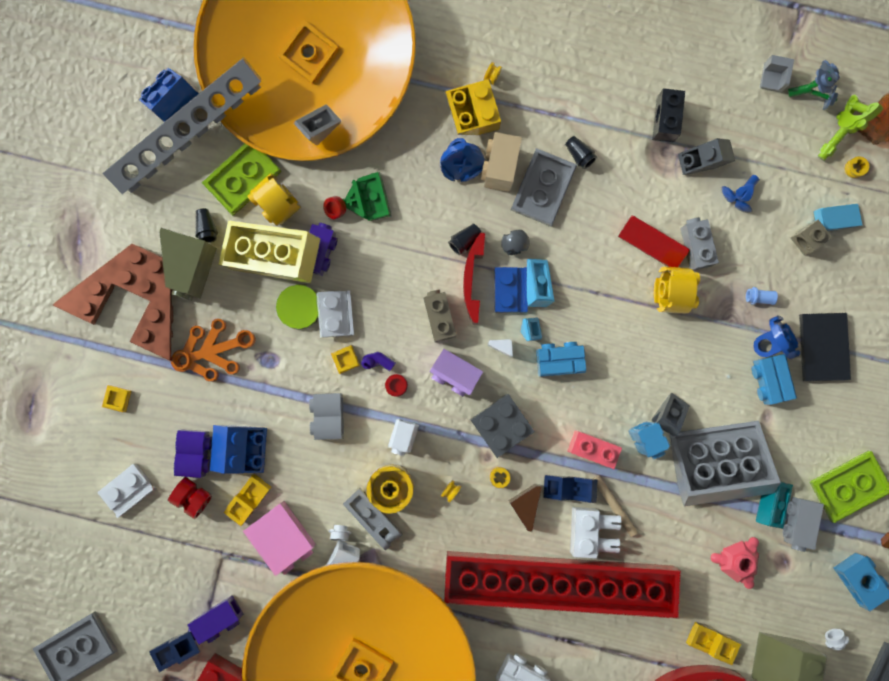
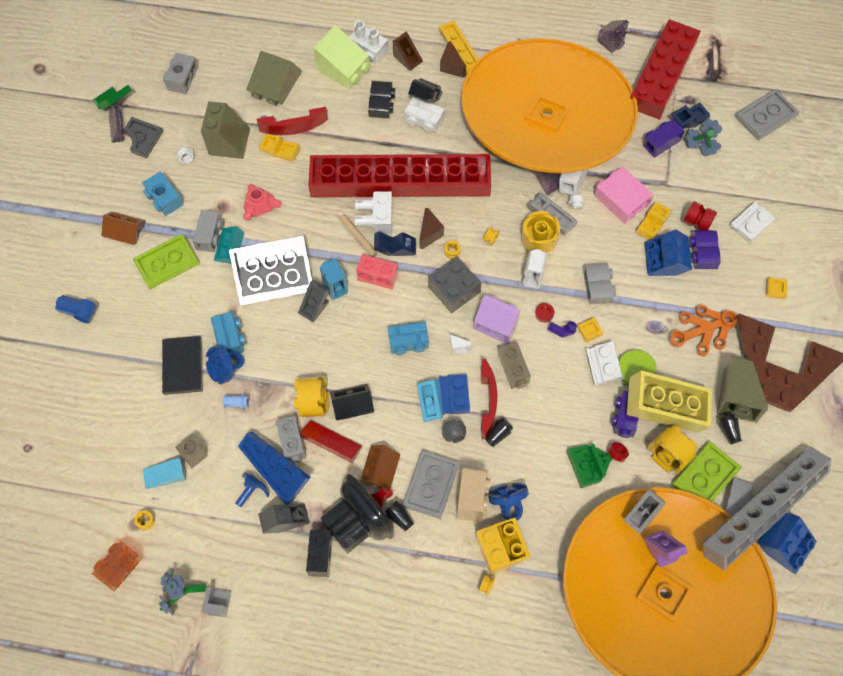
camera: 175 degrees right, 20 degrees down
(158, 605) = (710, 131): none -> sand blue plant
(212, 145) = (739, 494): none -> light grey slope
(301, 82) = (665, 548): none -> medium lavender slope
(531, 329) = (434, 361): medium azure slope -> none
(599, 207) = (380, 467): none -> dark orange panel
(626, 152) = (358, 515): none -> black piece
(629, 288) = (352, 402): none -> black panel
(716, 210) = (275, 468): none -> blue wing
(850, 123) = (150, 557): lime piece -> none

